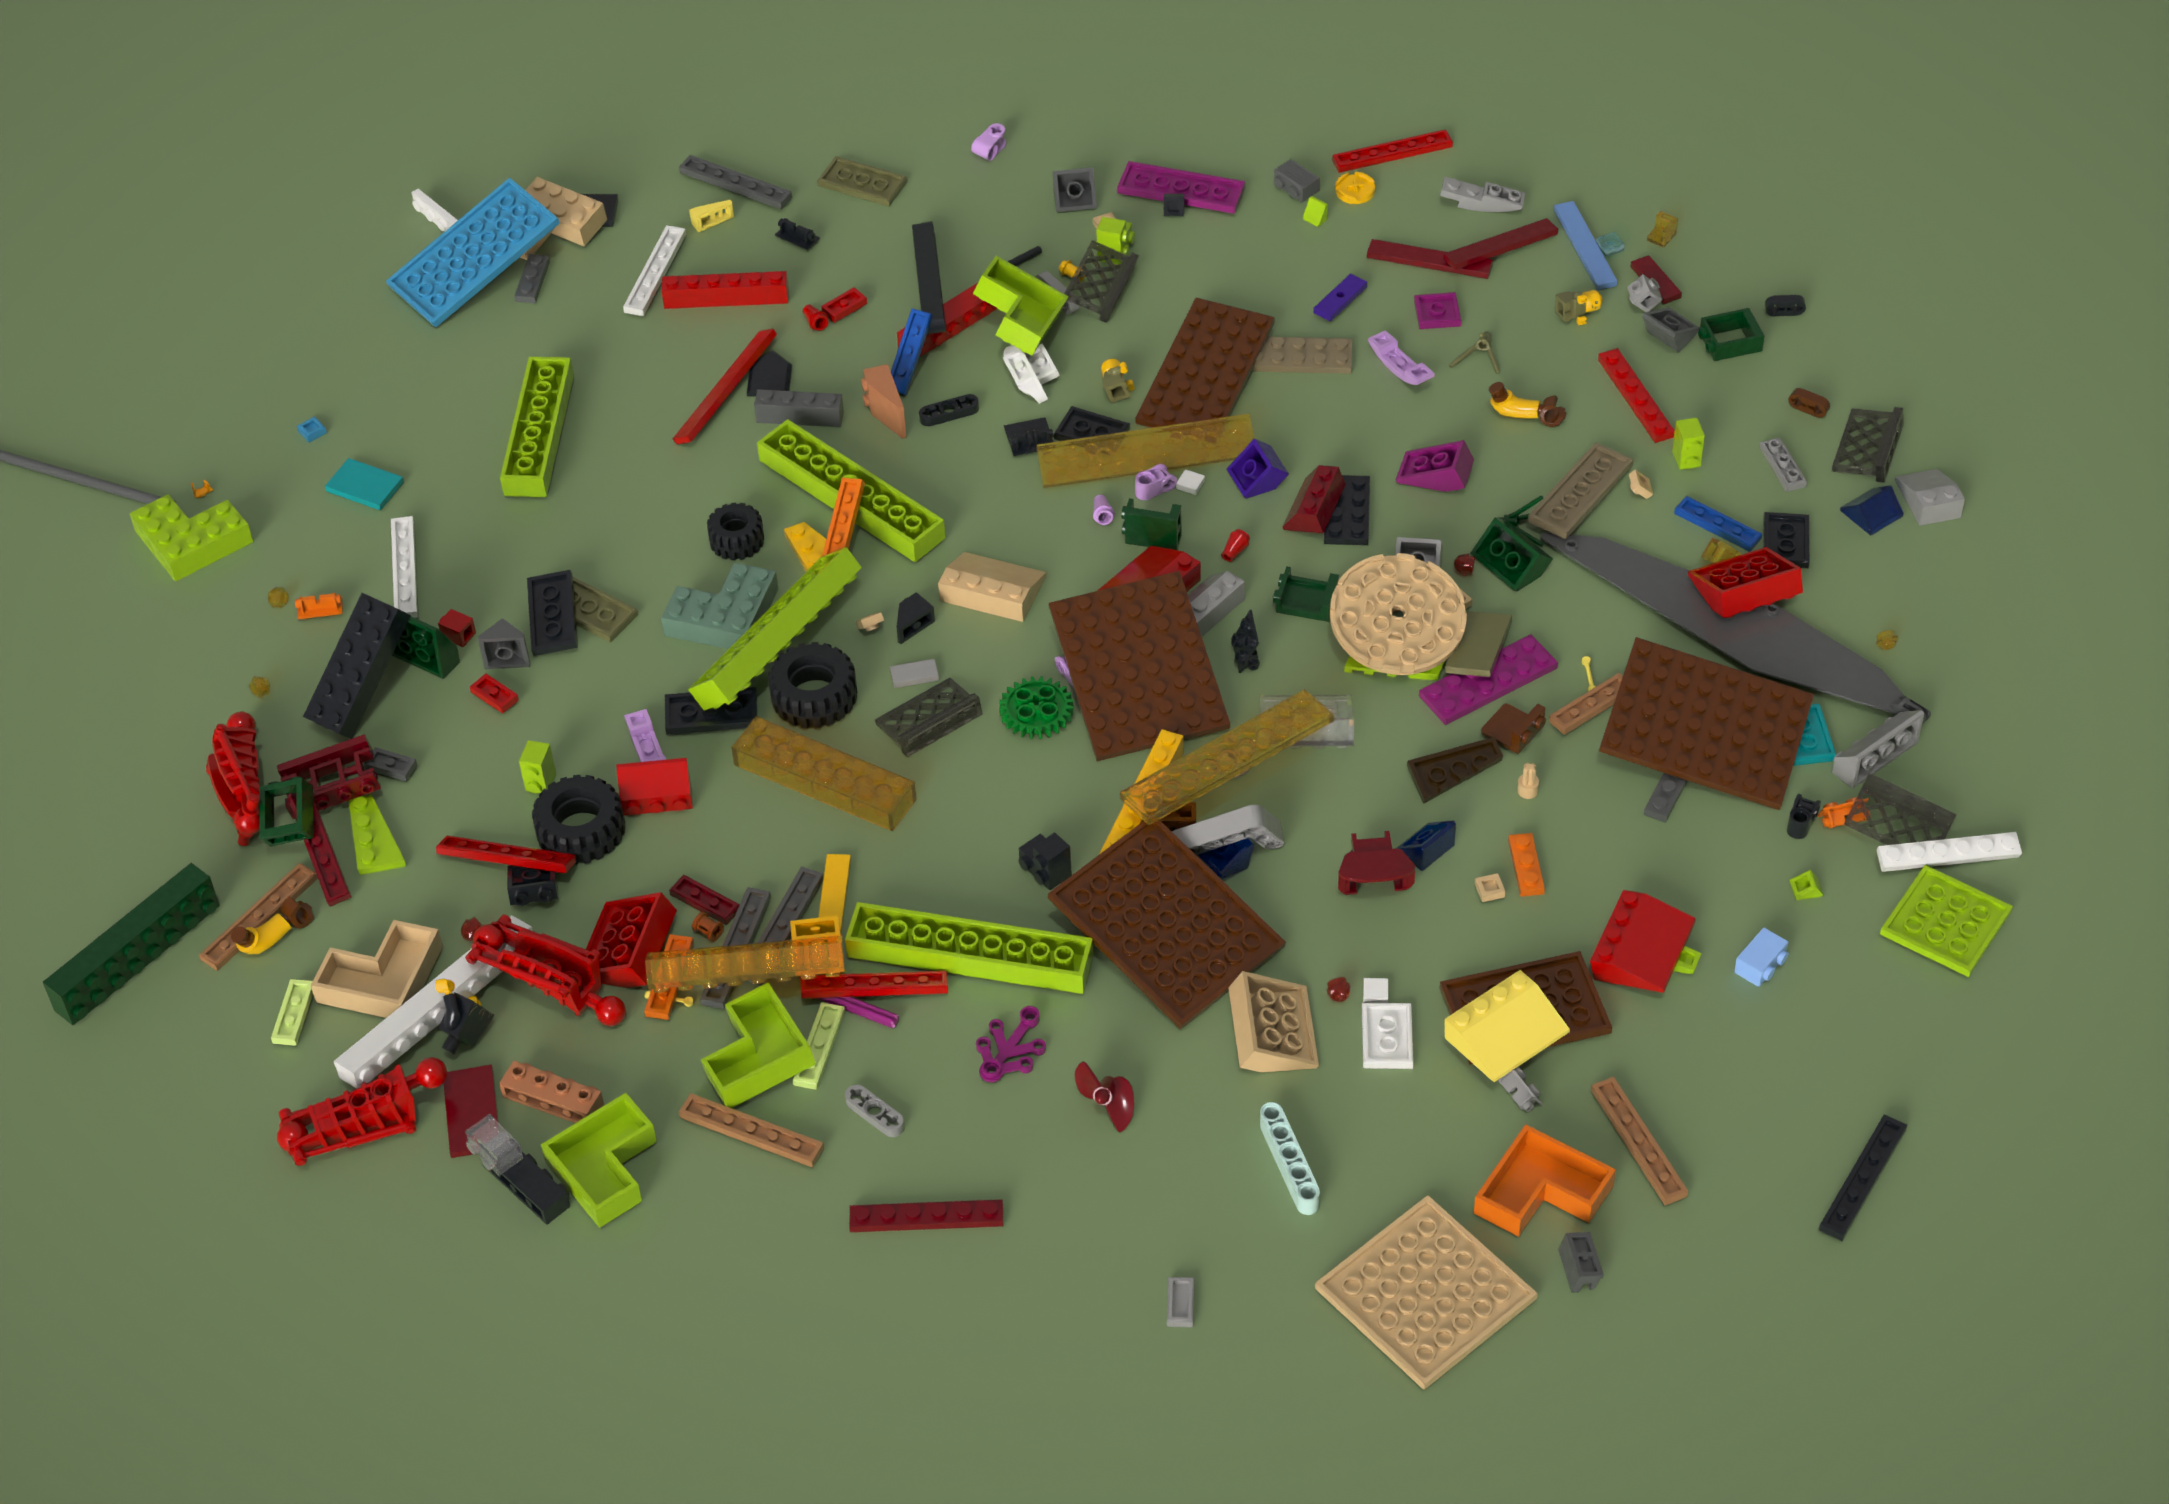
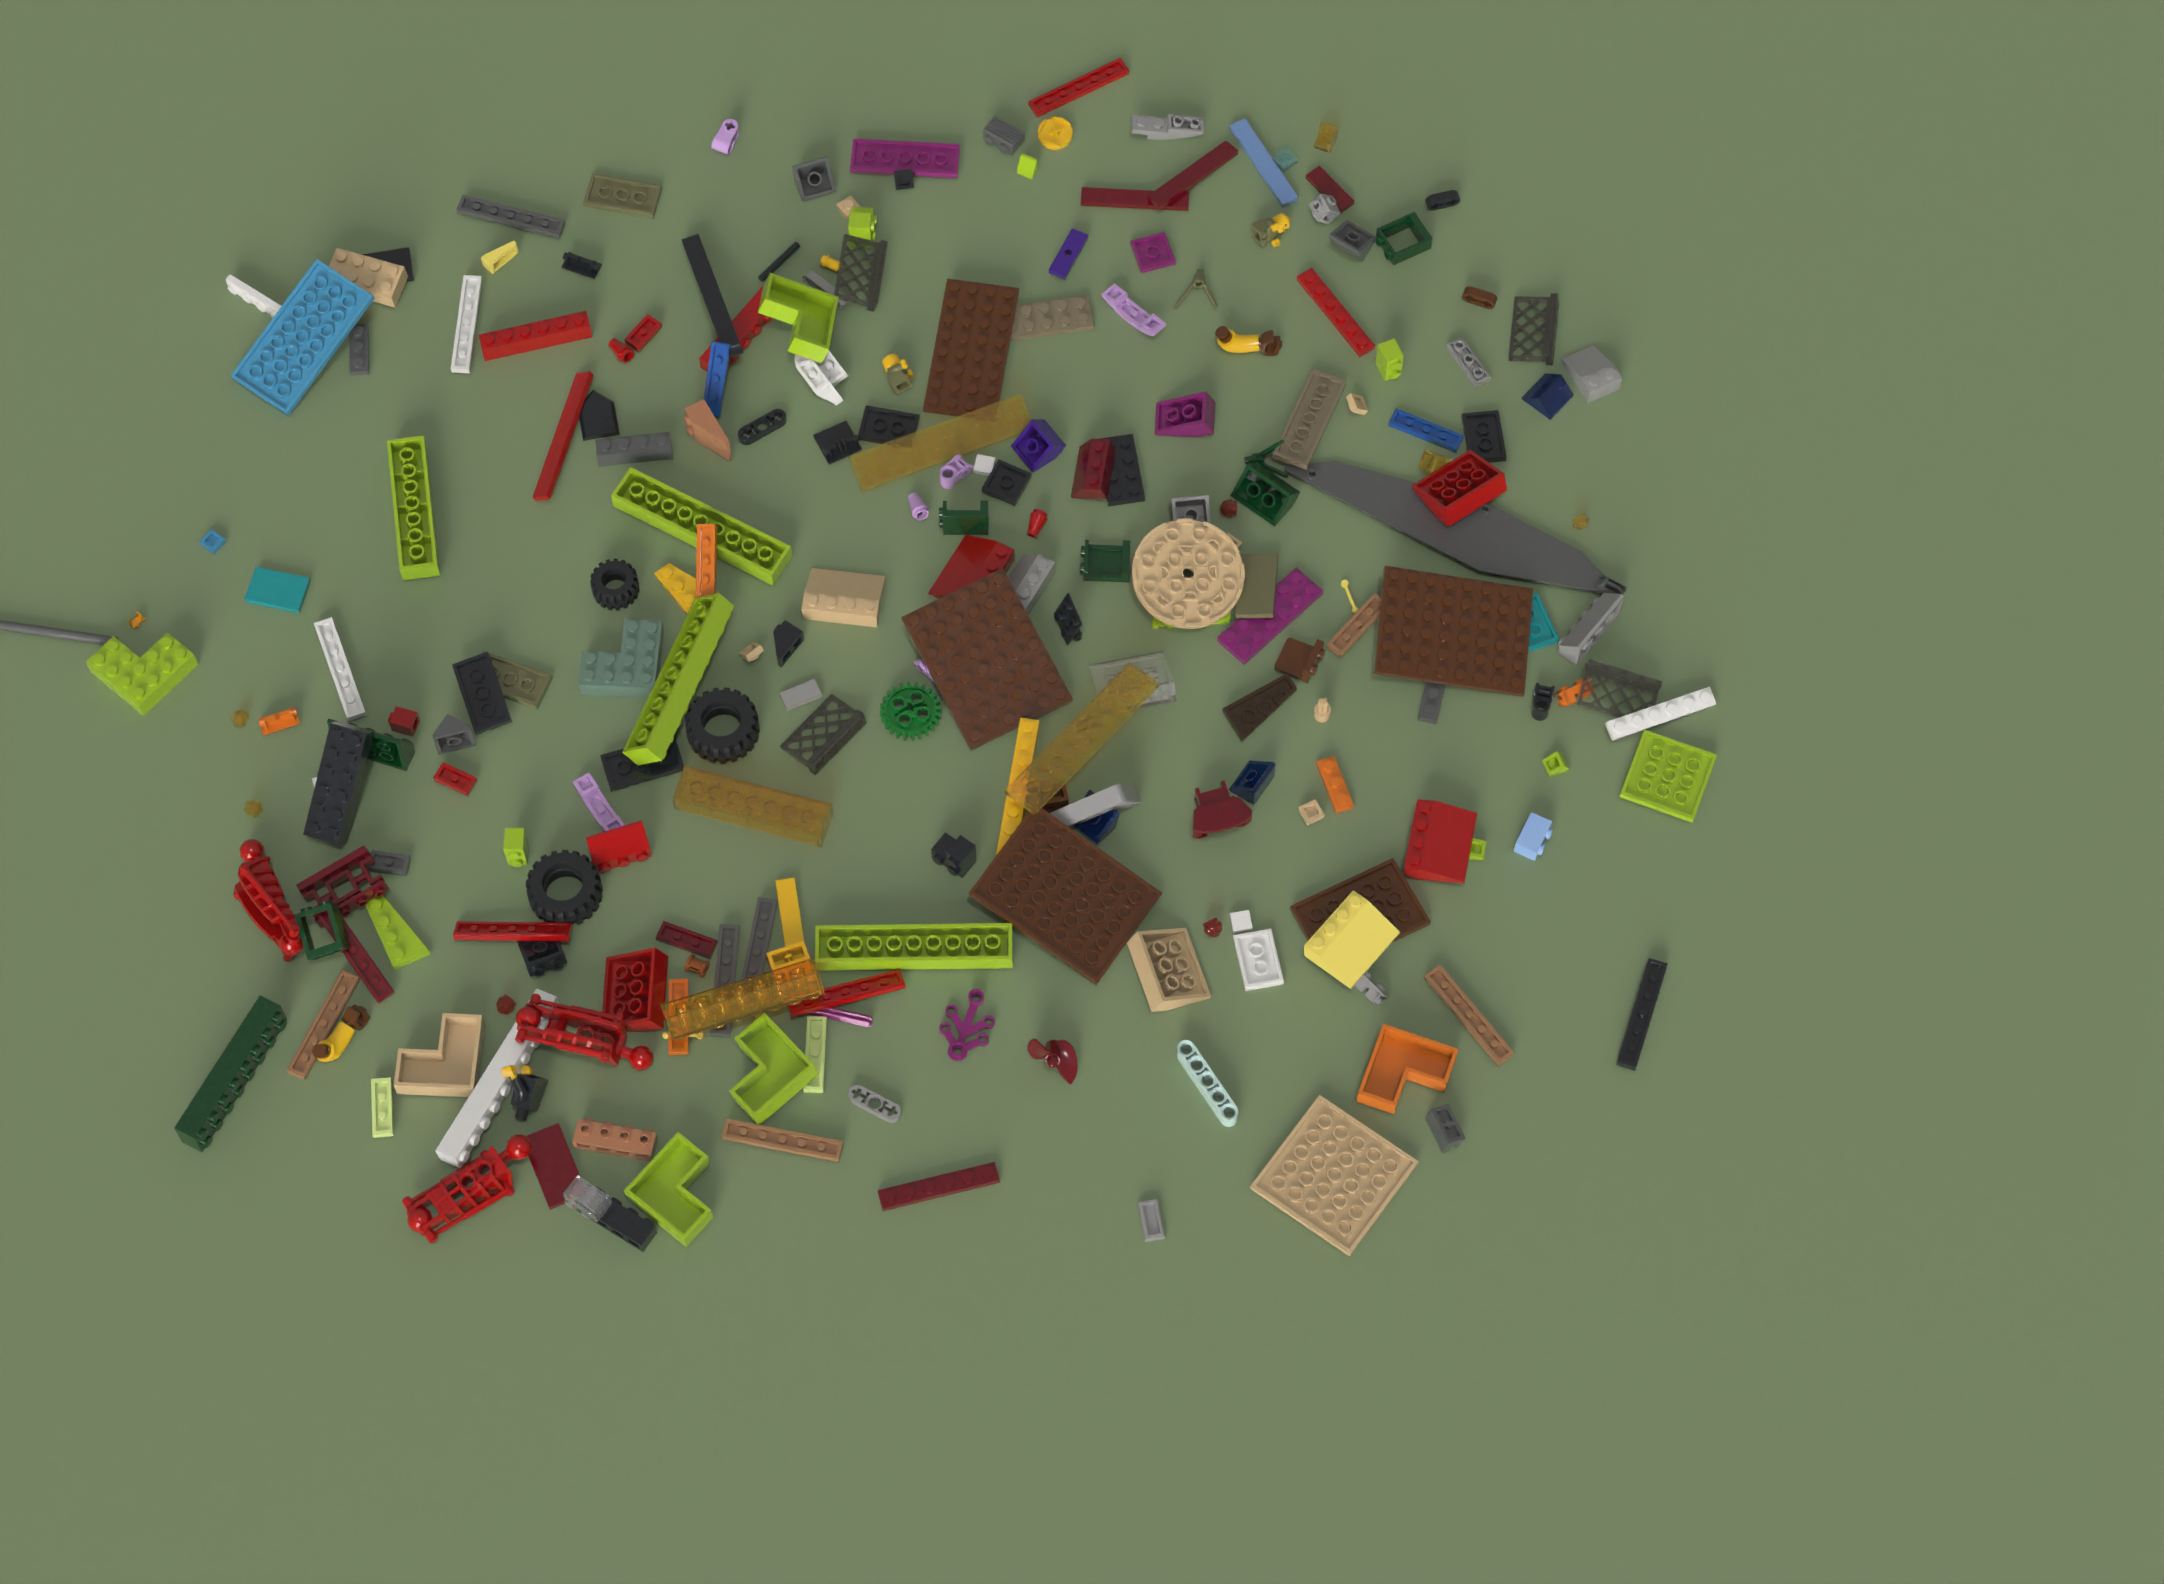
camera: 15 degrees left, 15 degrees up
(1211, 501) = (1006, 482): none -> black plate

